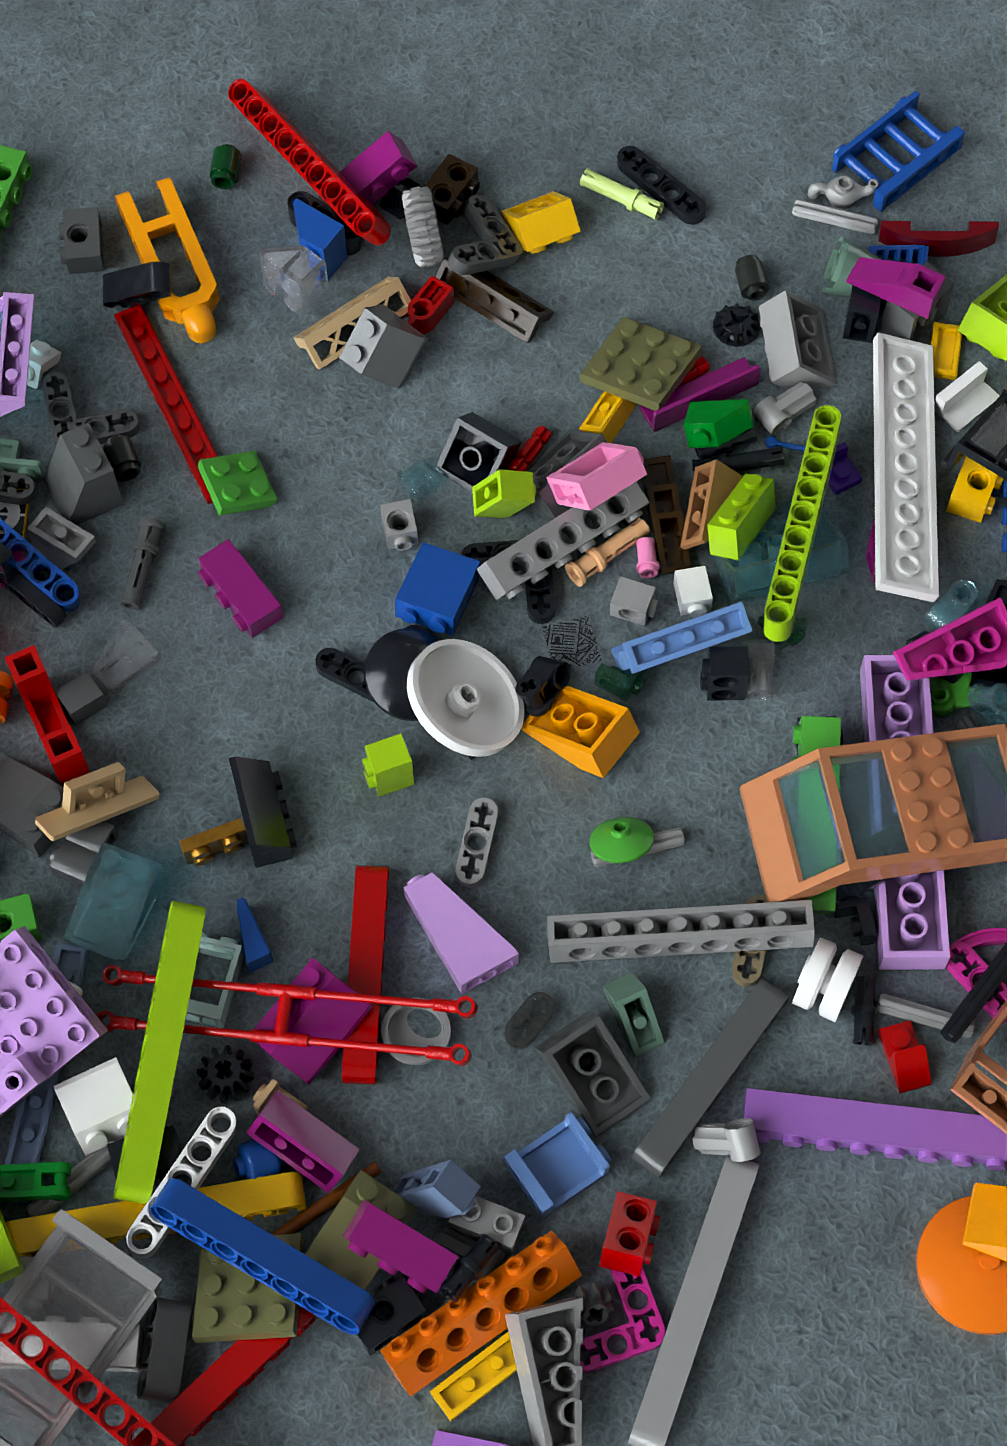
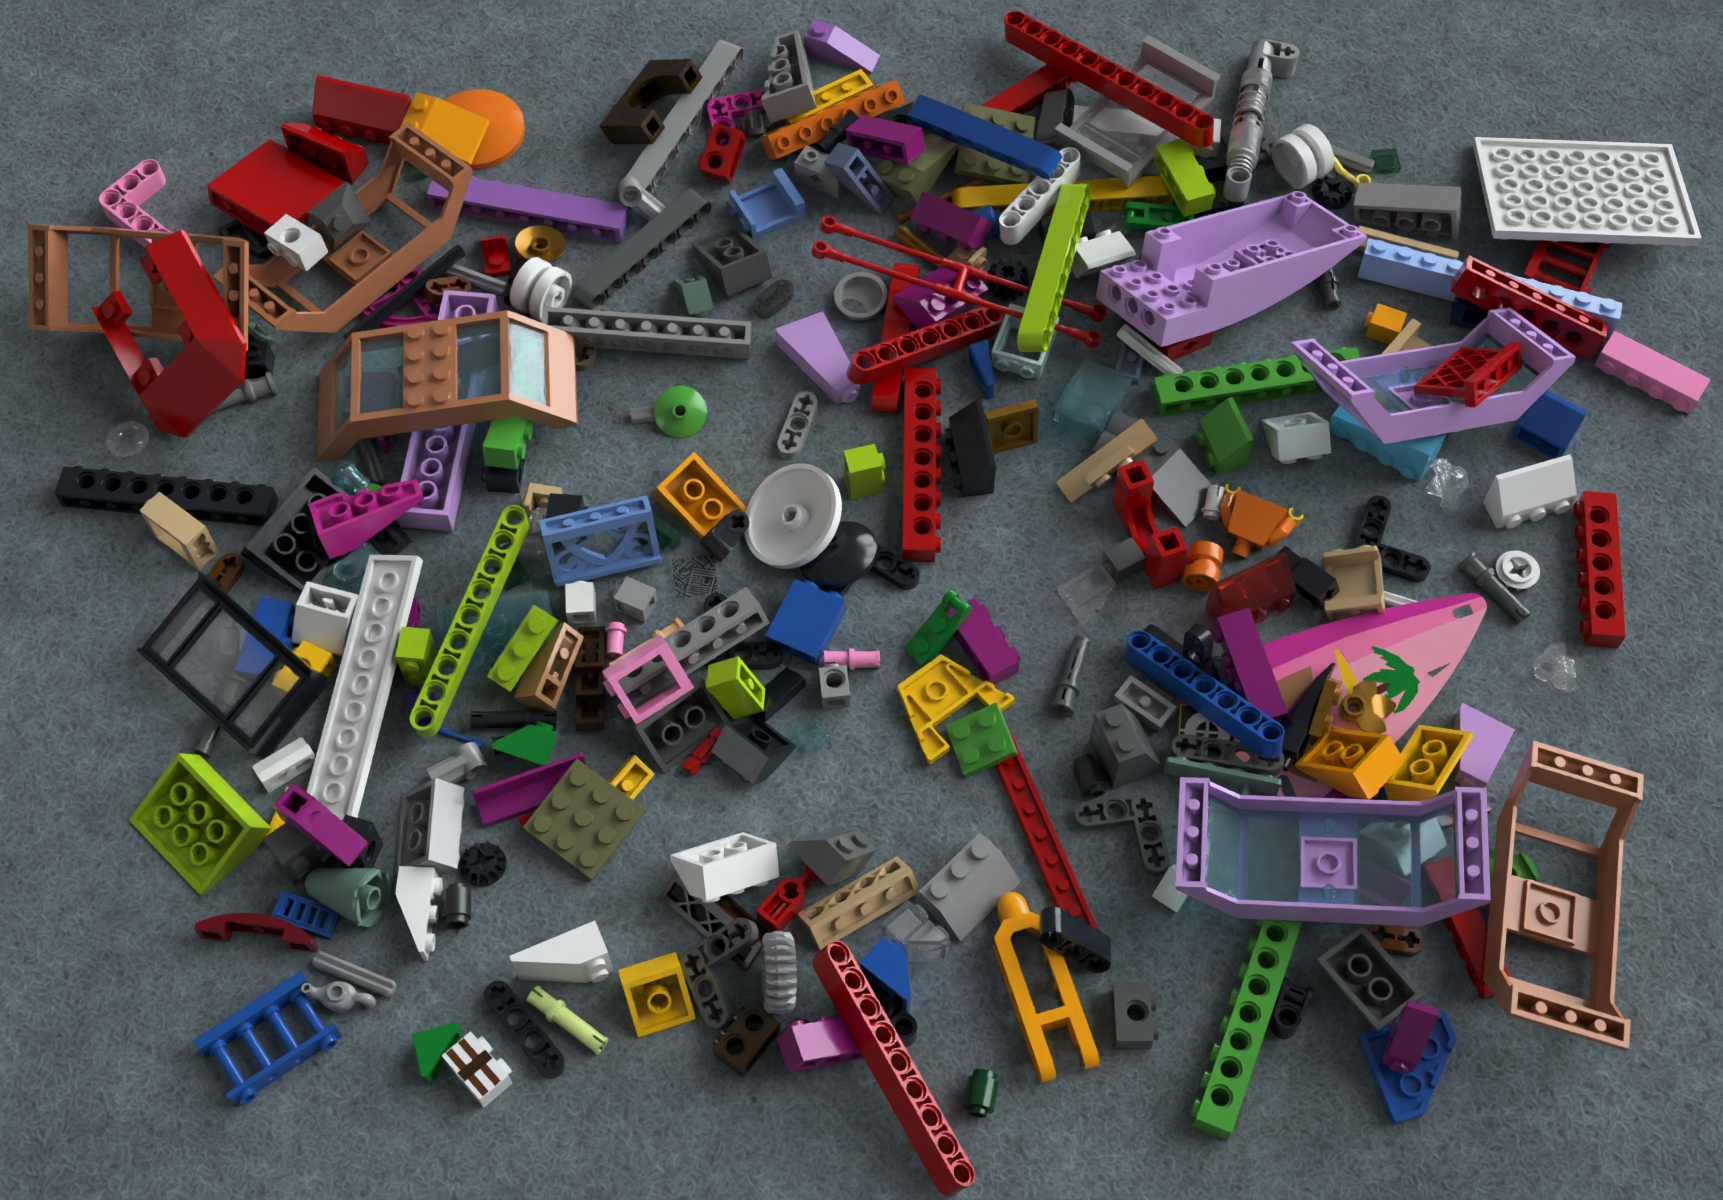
camera: 175 degrees left, 5 degrees down
(247, 341) = (968, 887): none -> light grey slope
(284, 533) = (939, 692): none -> yellow wing
(289, 587) = (938, 628): none -> green plate
(323, 694) = (915, 546): none -> red brick
(331, 927) = (923, 344): none -> red beam
(337, 1116) = (916, 243): none -> pearl gold axle
(383, 560) = (852, 658): none -> bright pink pin
(457, 521) = (781, 691): none -> black slope
(489, 324) = (726, 866): none -> white slope
(631, 227) = (570, 957): none -> white slope
(695, 143) = (477, 1068): none -> white brick
(741, 156) = (431, 1046): none -> green slope
(760, 714) = (537, 495): none -> tan bracket
(777, 1283) = (629, 119): none -> dark brown arch
(788, 267) = (417, 898): none -> white slope
(852, 1050) = (540, 242): none -> pearl gold dish
(856, 502) = (415, 654): none -> lime brick
(945, 976) = (435, 287): none -> reddish brown beam
(969, 546) = (324, 617): none -> white slope

